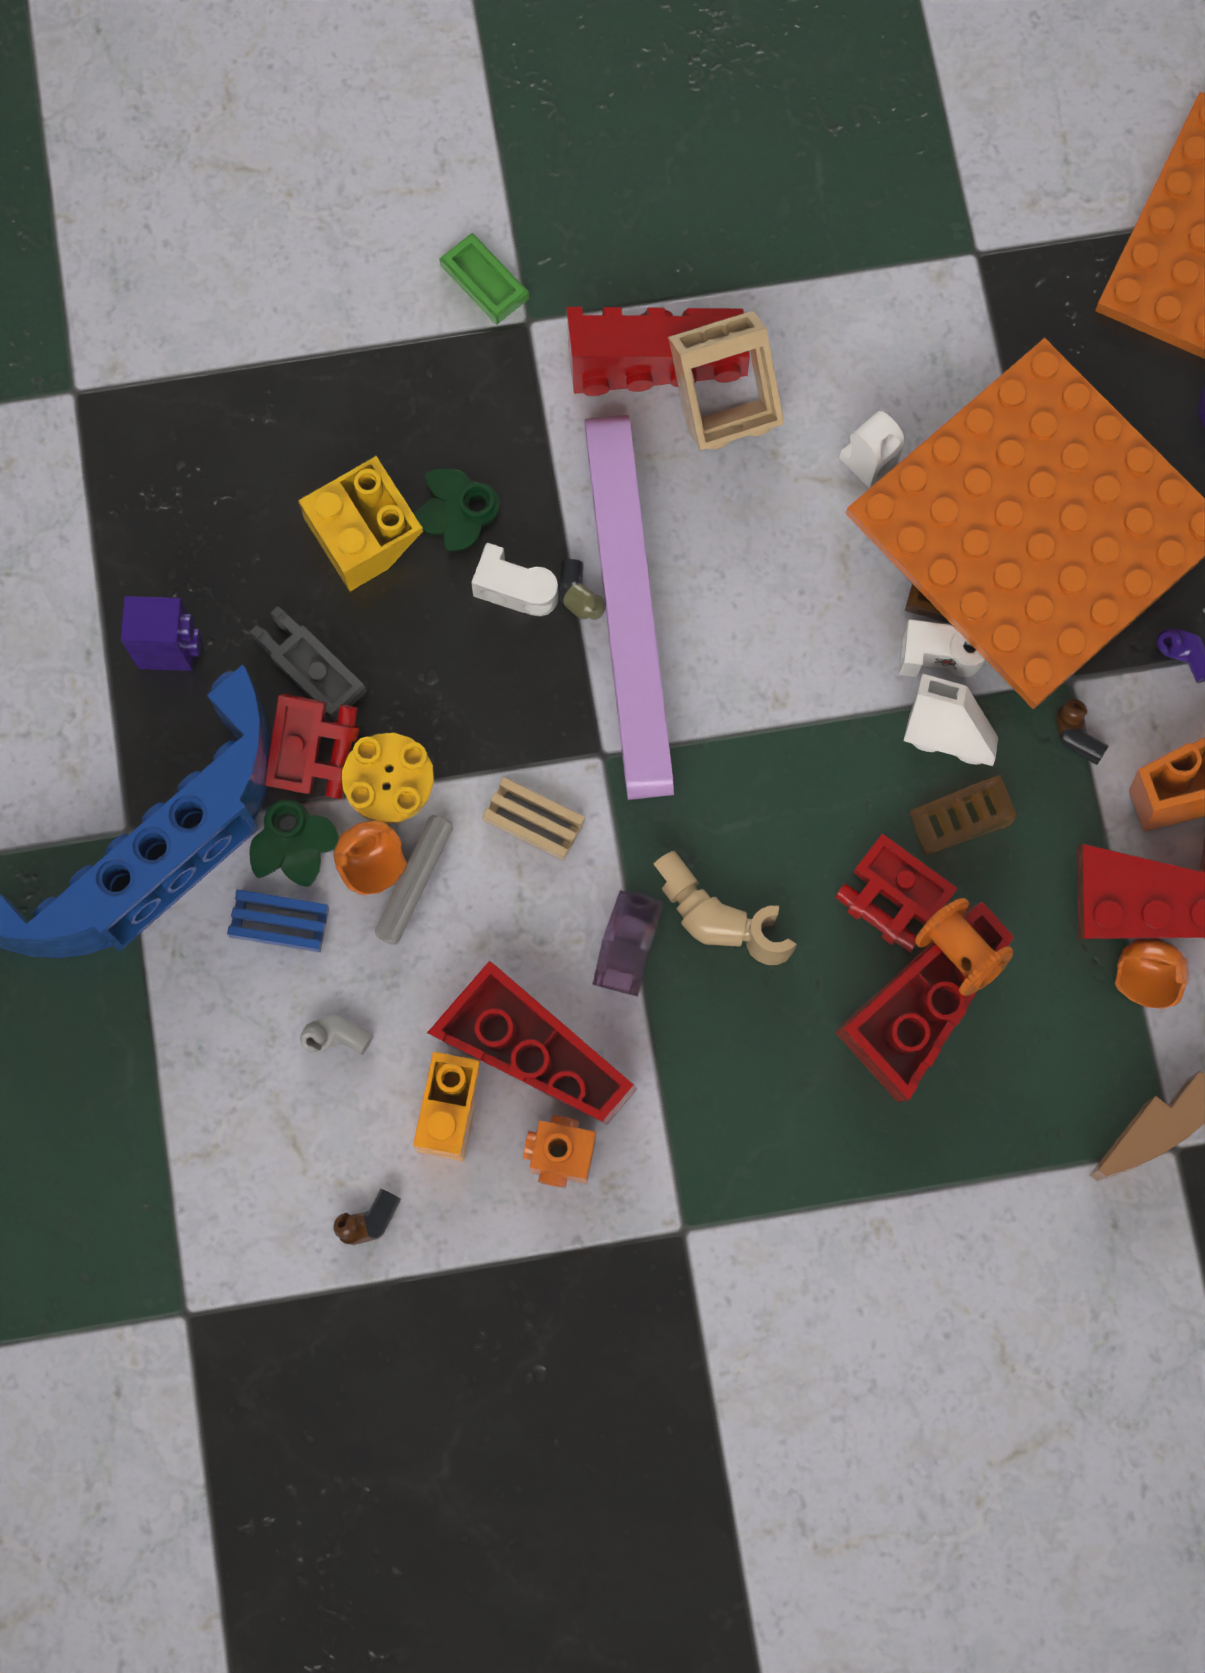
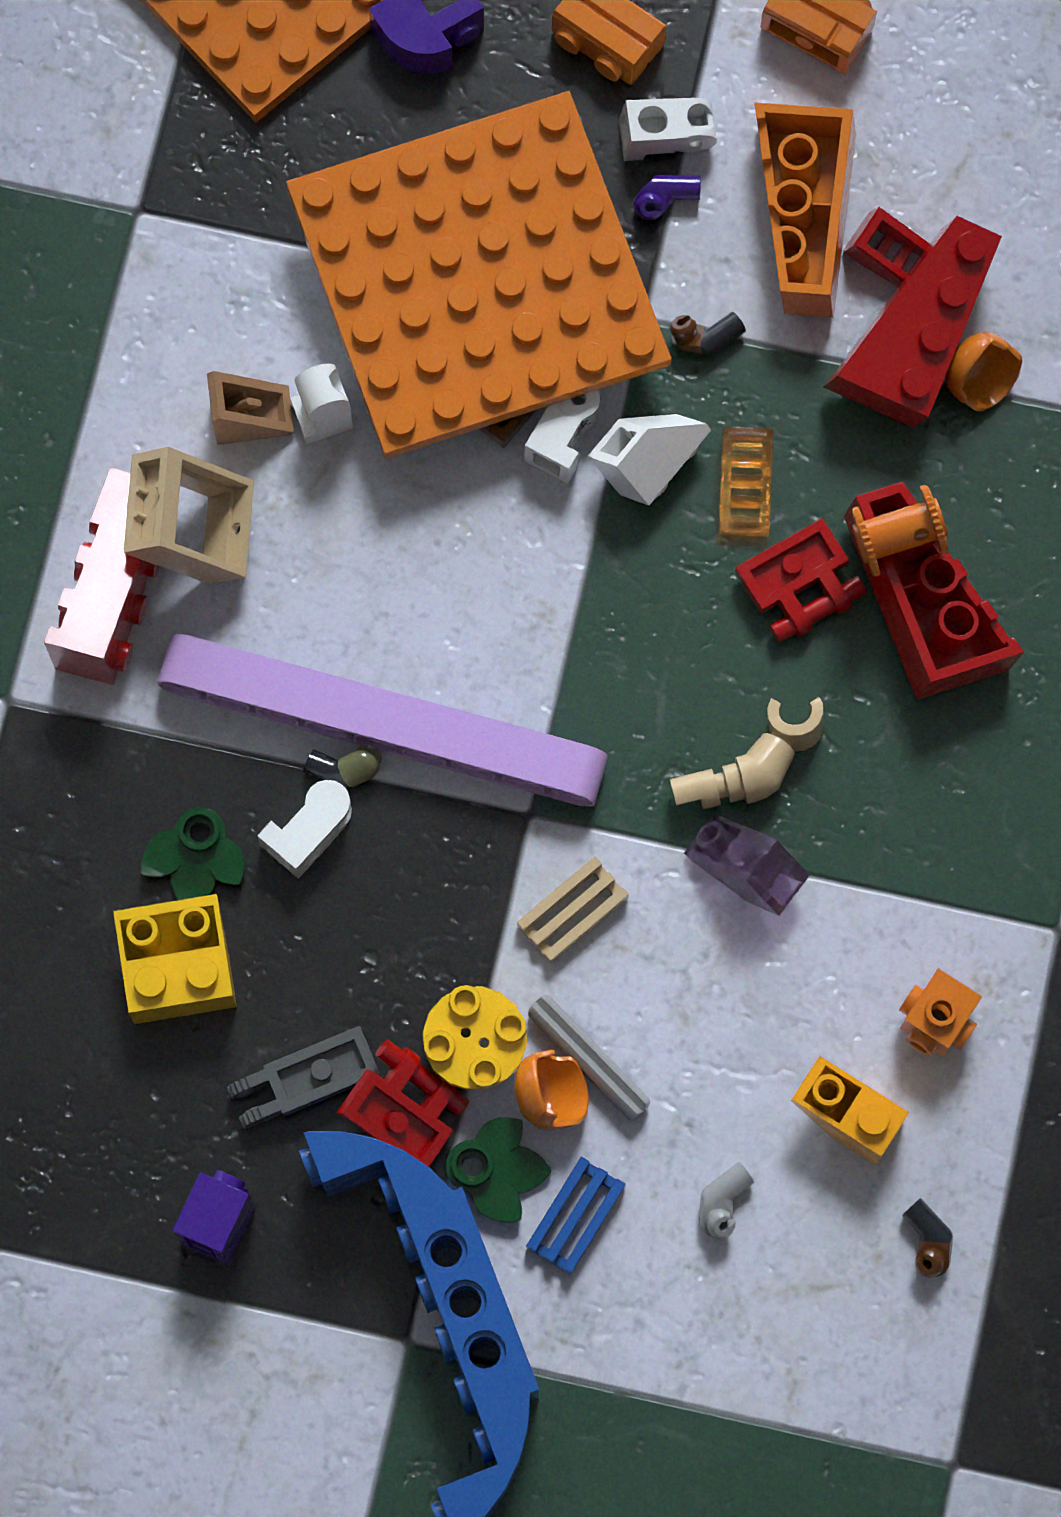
camera: 70 degrees left, 0 degrees up
(521, 1038) = (808, 1007): red wedge -> none
(842, 392) = (248, 408): none -> medium nougat slope

